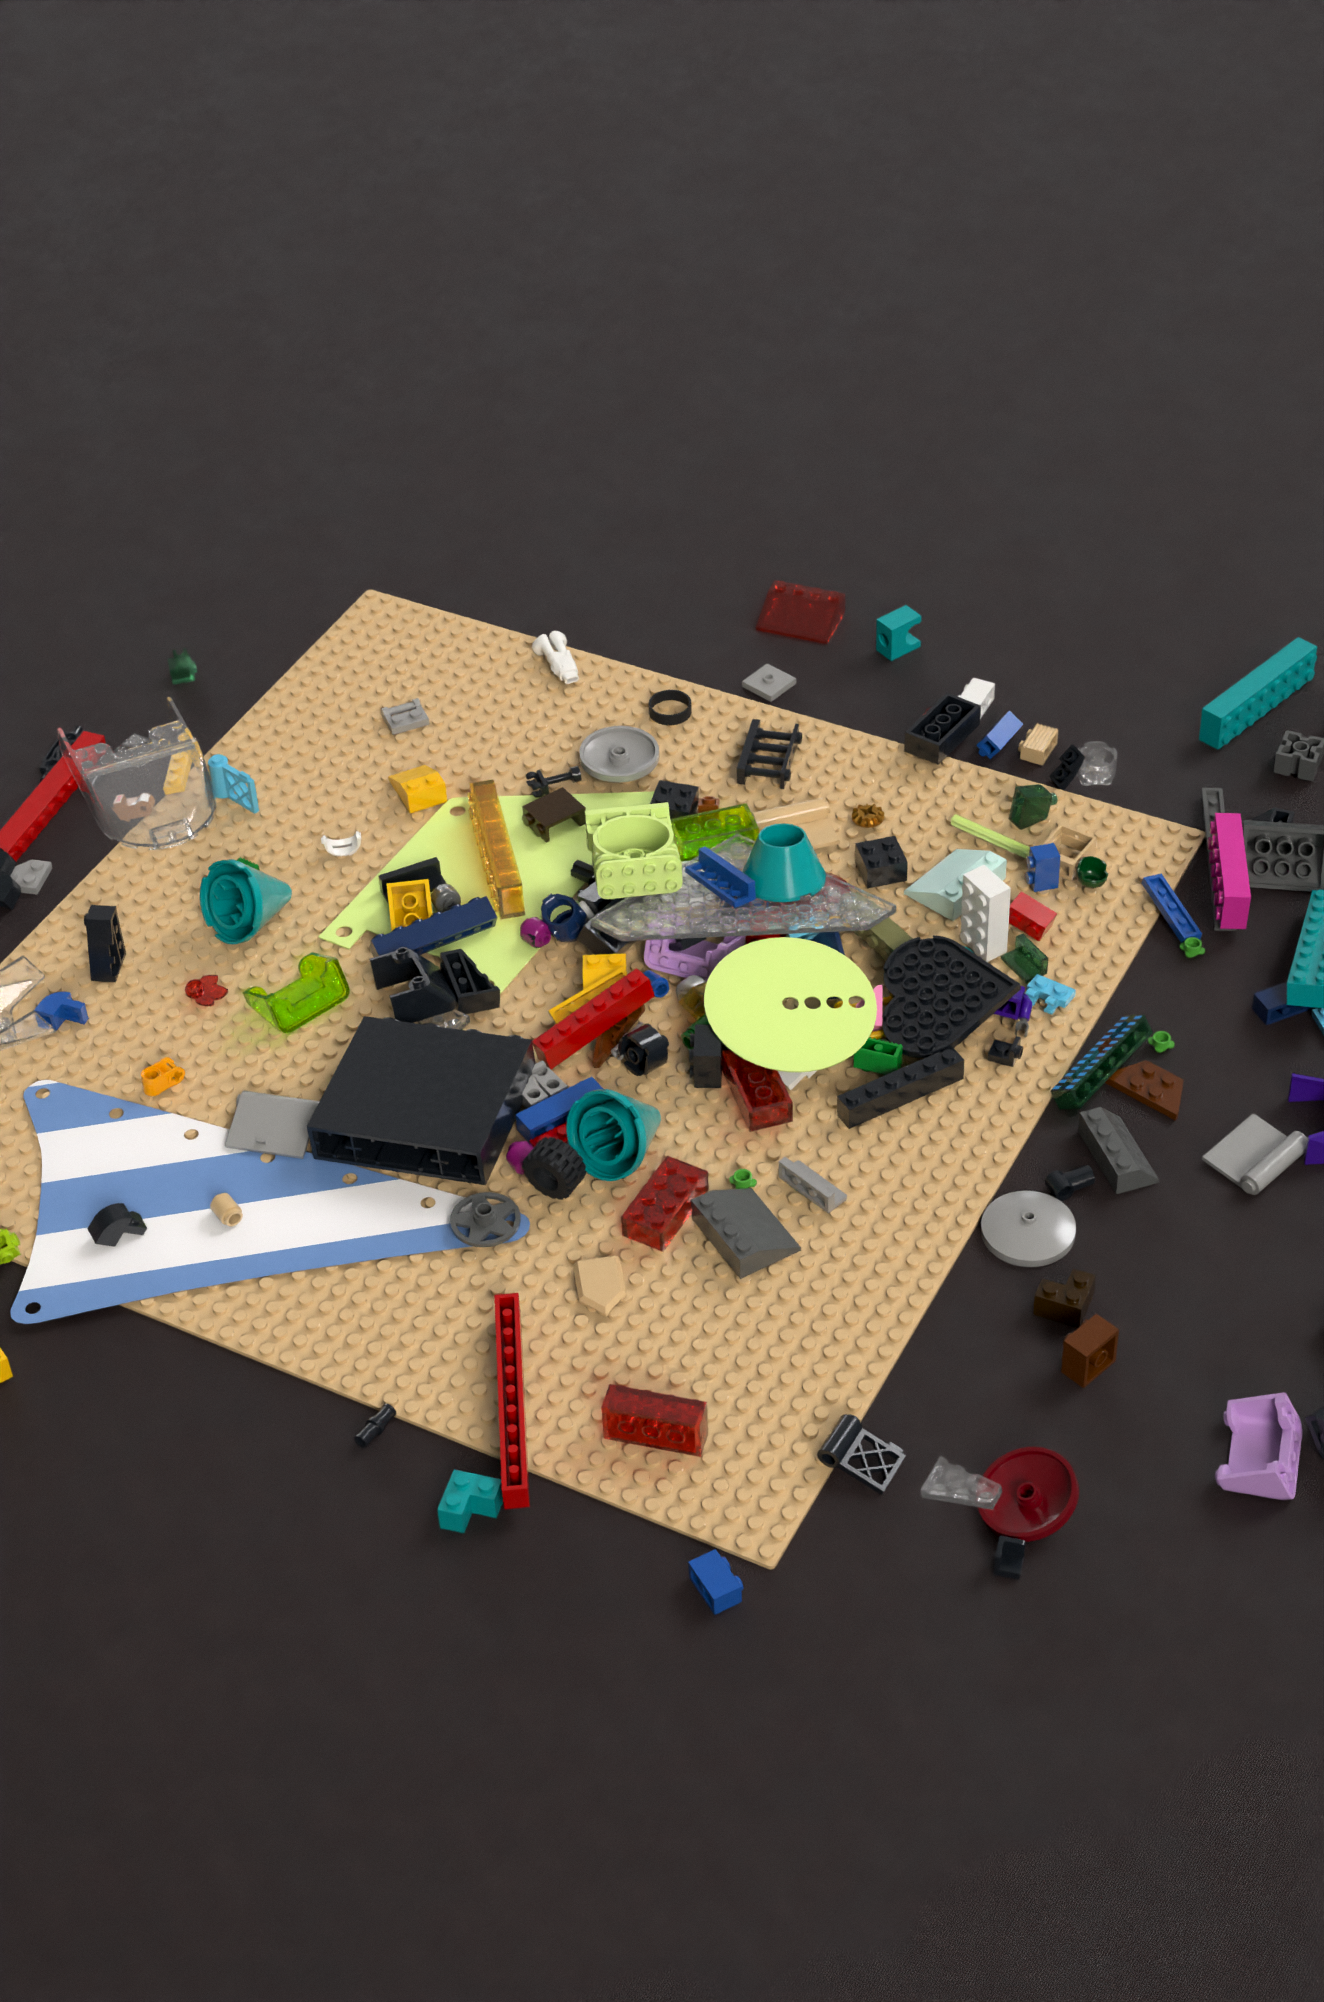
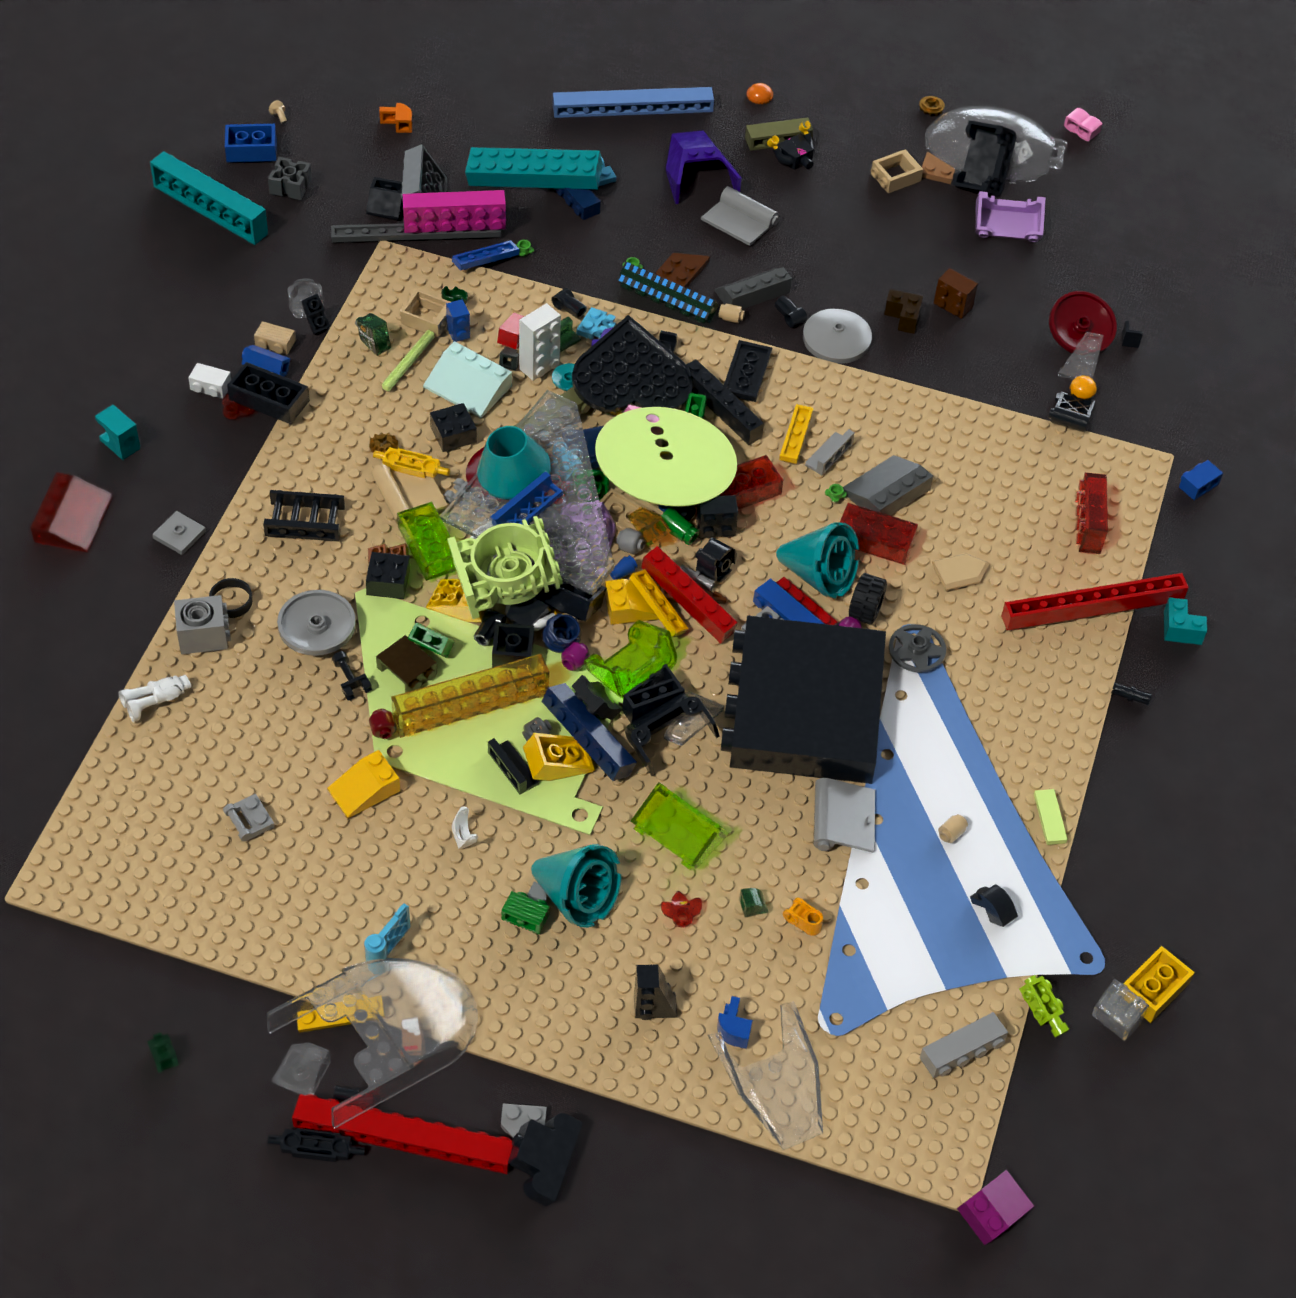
camera: 105 degrees left, 10 degrees up
(193, 1040) = (752, 902): none -> clear green brick
(219, 1306) = (1050, 816): none -> yellowish green tile
(471, 934) = (595, 698): none -> black brick
(520, 981) = (644, 654): none -> clear neon green windscreen
(555, 878) = (512, 643): none -> black brick
(573, 829) = (431, 639): none -> green brick
(629, 678) = (202, 624): none -> light grey brick
(831, 827) = (411, 463): none -> yellow piece
(844, 1153) = (796, 434): none -> yellow plate
(906, 1478) = (1083, 387): none -> light orange hair
(957, 1120) = (747, 370): none -> black plate
(1067, 1122) = (731, 313): none -> tan brick
(1085, 967) = (566, 301): none -> black piece

